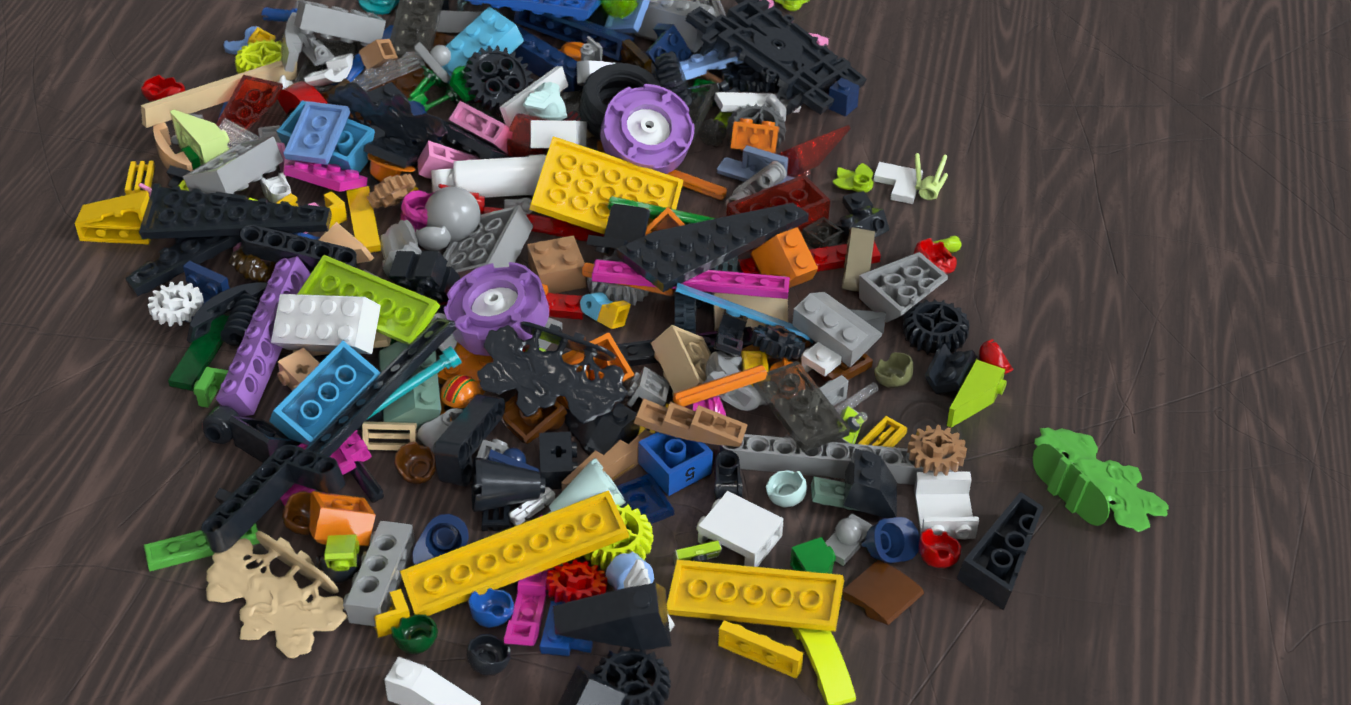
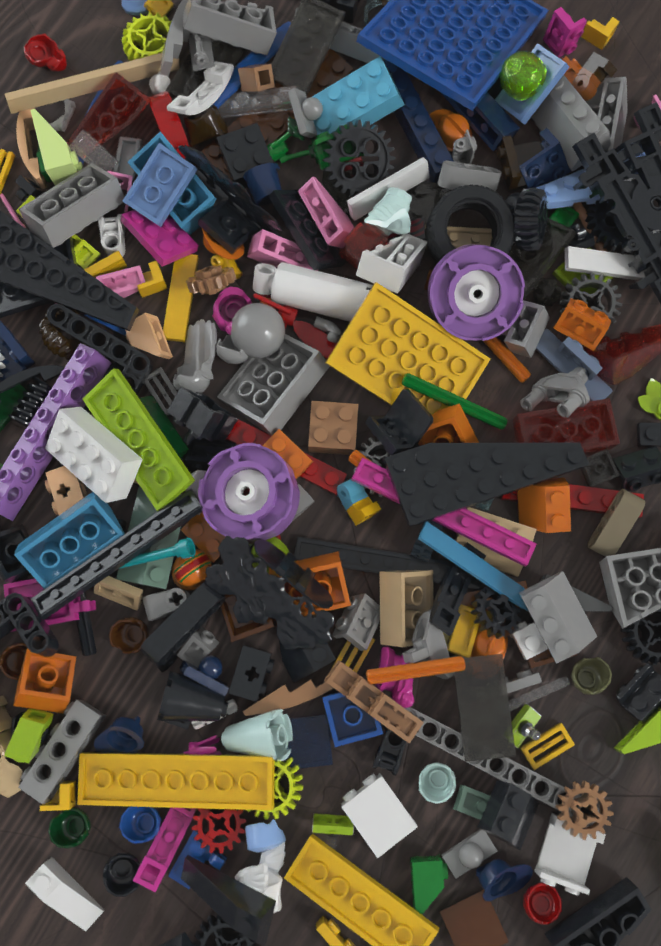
camera: 20 degrees right, 35 degrees up
(704, 155) = (527, 329): none -> light grey brick
(773, 101) = (624, 282): light grey arm -> none

